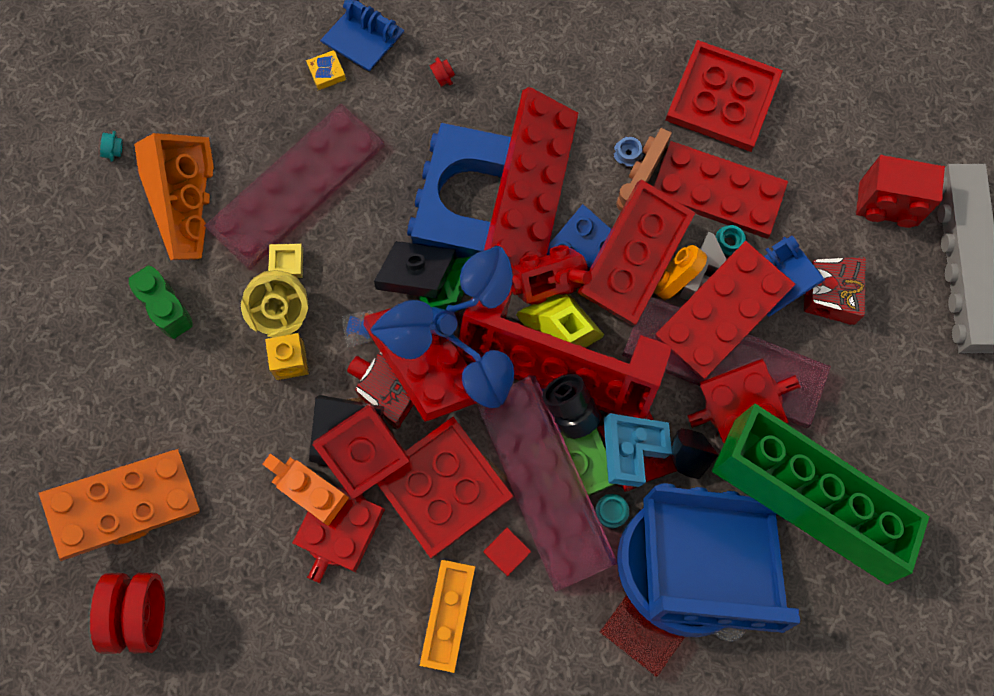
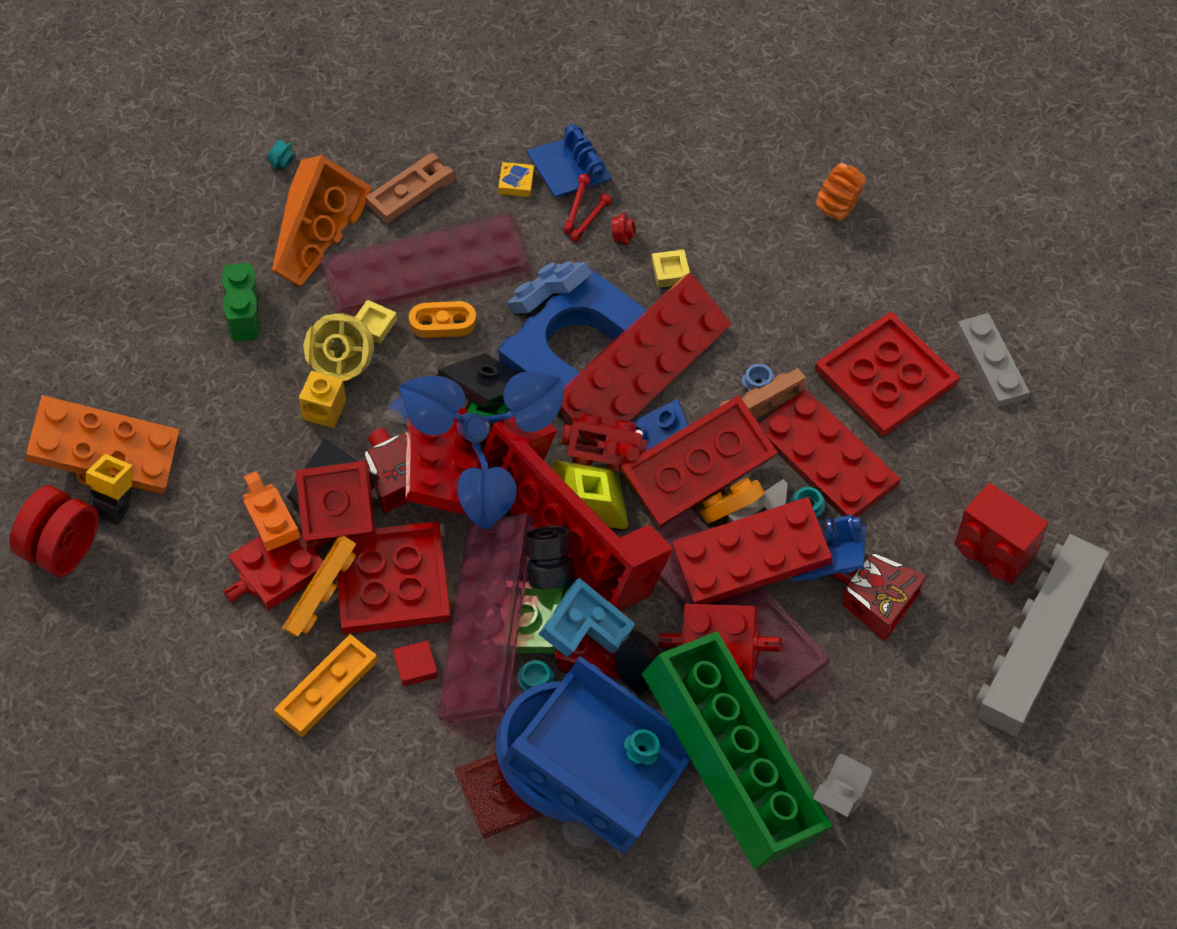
camera: 30 degrees right, 15 degrees down
(154, 548) = (110, 494): none -> yellow leg
(241, 122) = (410, 187): none -> nougat plate
(341, 227) = (442, 319): none -> light orange plate
(384, 44) = (583, 181): none -> red hinge
(392, 534) = (320, 587): none -> light orange plate
(409, 53) = (605, 200): none -> red hinge
(414, 148) = (552, 279): none -> medium blue plate
(501, 88) = (669, 267): none -> light yellow plate
(748, 526) = (646, 740): none -> teal plate
(793, 42) = (993, 360): none -> light grey plate
(914, 479) = (845, 785): none -> light grey slope

